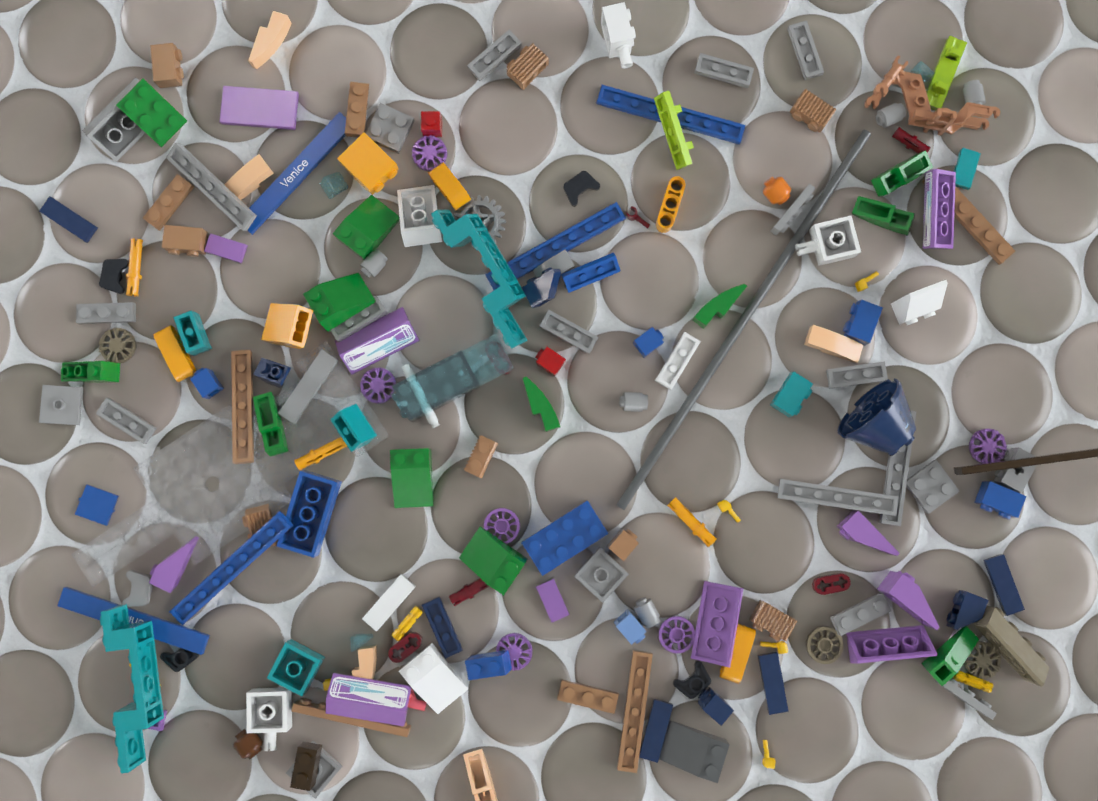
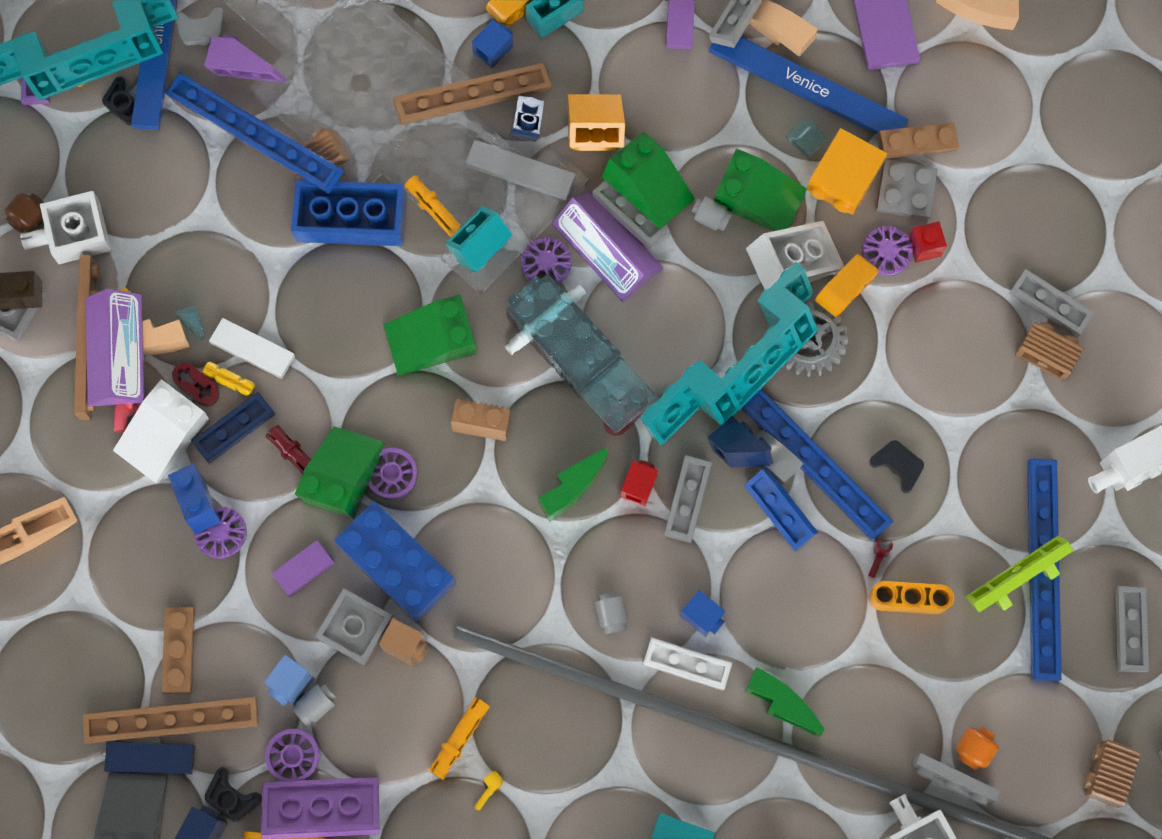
camera: 70 degrees right, 10 degrees down
(270, 424) = (456, 134): green slope -> none
(295, 667) = (139, 247): teal brick -> none

